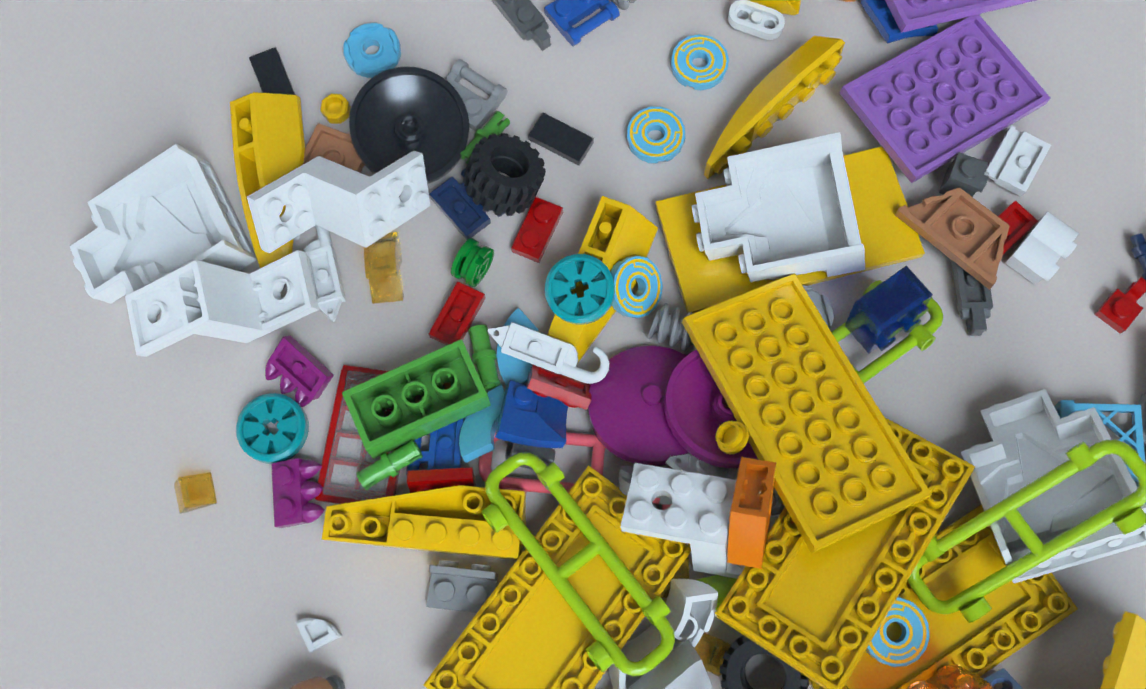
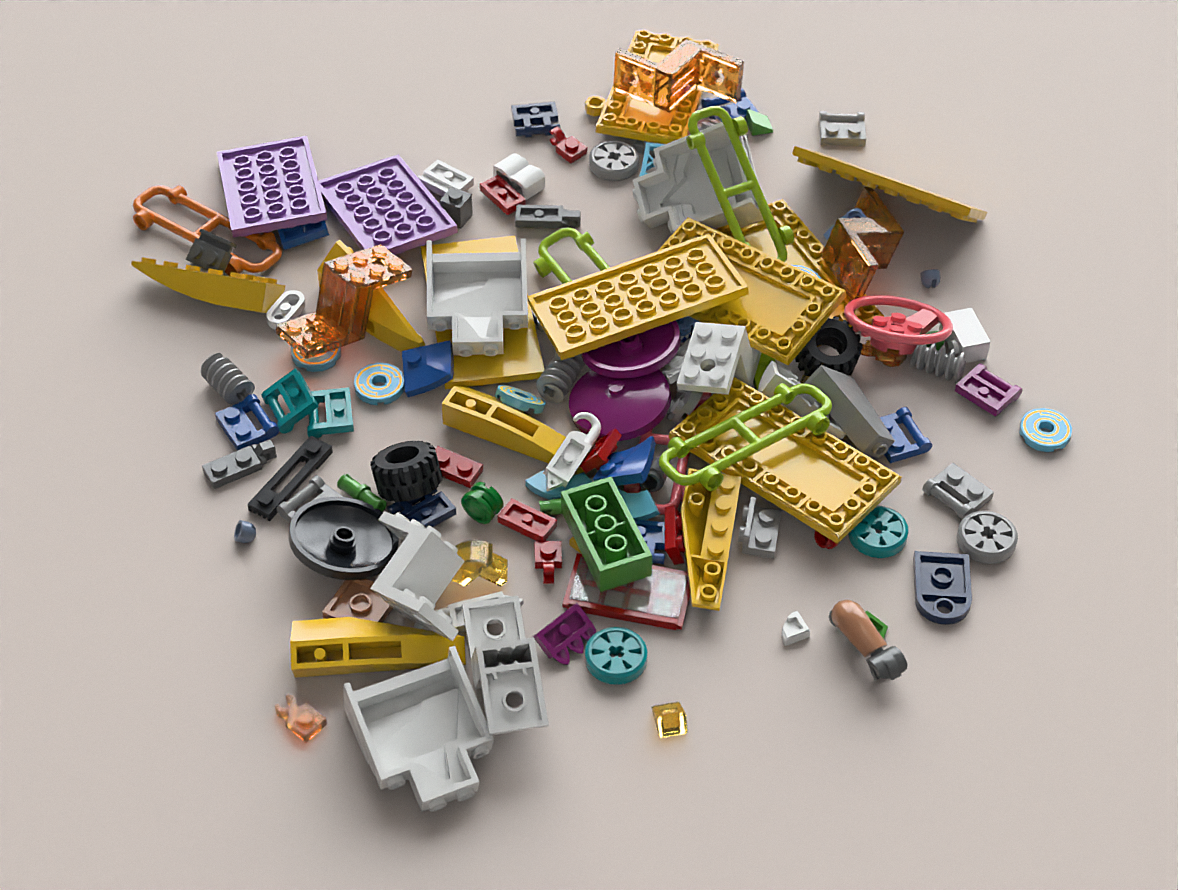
camera: 90 degrees left, 25 degrees down
(197, 131) = (302, 720): none -> clear orange plate
(271, 72) = (259, 656): black tile -> none
(293, 492) = (674, 639): magenta plate -> none
(335, 108) = (306, 603): yellow tile -> none
(372, 64) = (250, 589): medium azure tile -> none
(389, 464) = (661, 565): bright green pin -> none
(410, 344) = (548, 557): none -> plate
(426, 34) = (244, 532): none -> sand blue hinge
(543, 85) = (314, 454): none -> black container
(561, 139) = (369, 444): black tile -> none
(563, 279) = (512, 426): teal wheel -> none
(604, 96) = (337, 413): none -> teal plate
(611, 45) = (296, 396): none -> teal plate
(676, 179) = (427, 367): none -> blue plate
(732, 437) = (660, 329): yellow plate -> none
(751, 512) = (724, 303): orange window -> none
(766, 67) = (343, 301): none -> clear orange bracket
(888, 310) = (567, 244): clear blue brick -> none
(961, 231) = (503, 209): nougat wing -> none
(1121, 382) = (614, 160): none -> light grey wheel

